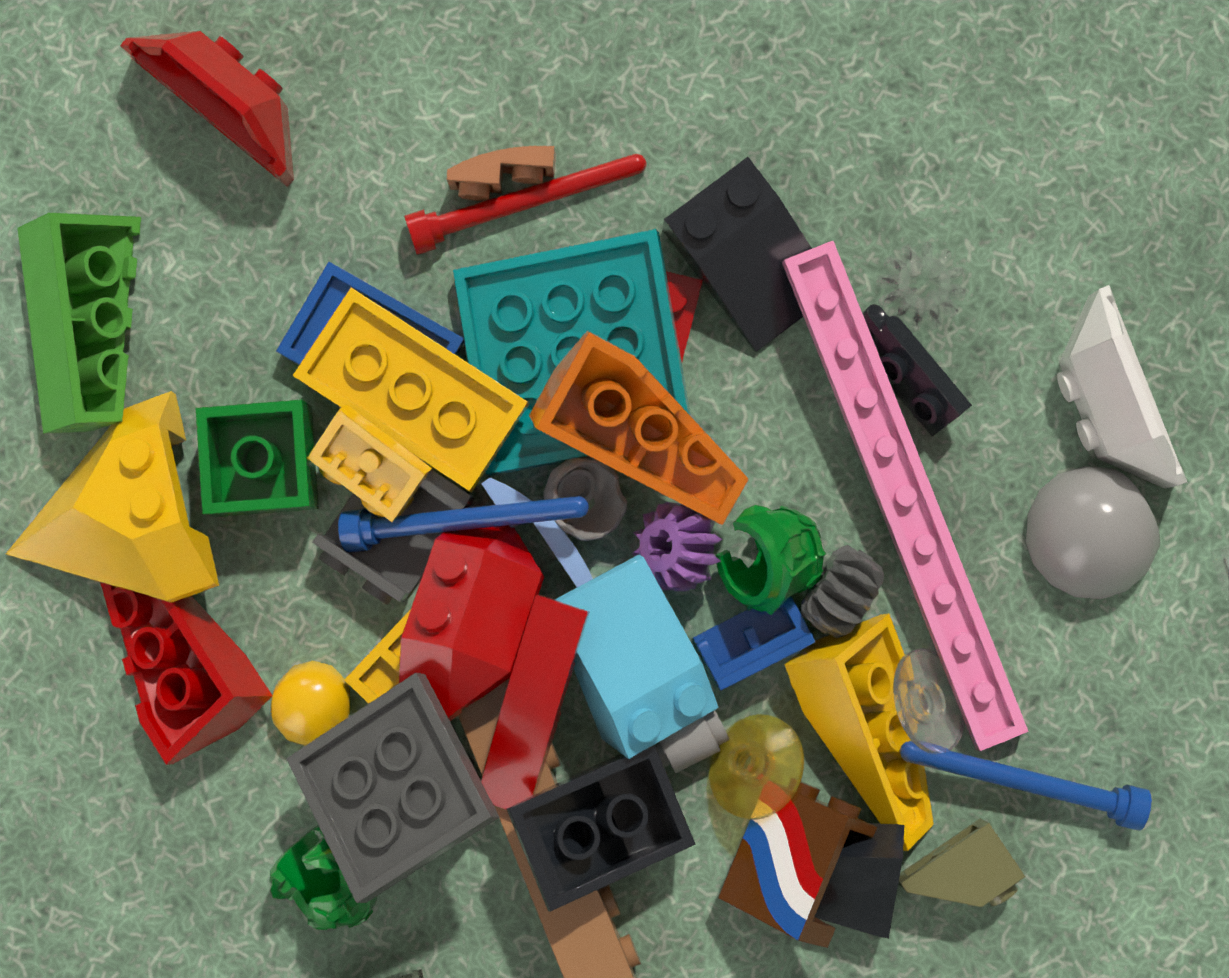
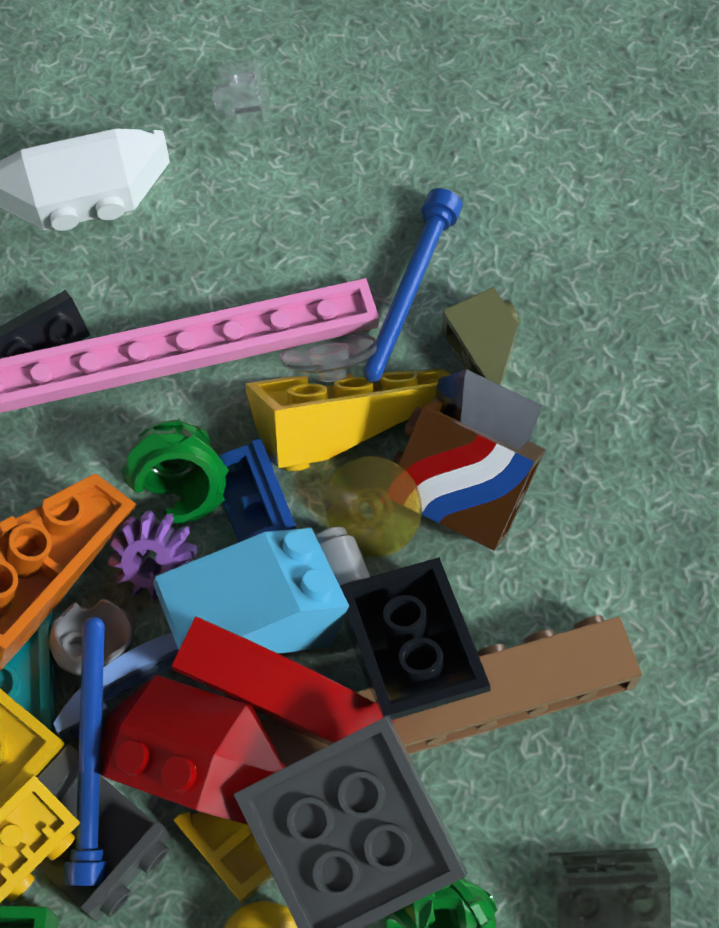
camera: 85 degrees left, 20 degrees down
(843, 593) = (219, 410): dark grey gear -> none
(1091, 533) = (197, 215): light grey cylinder -> none

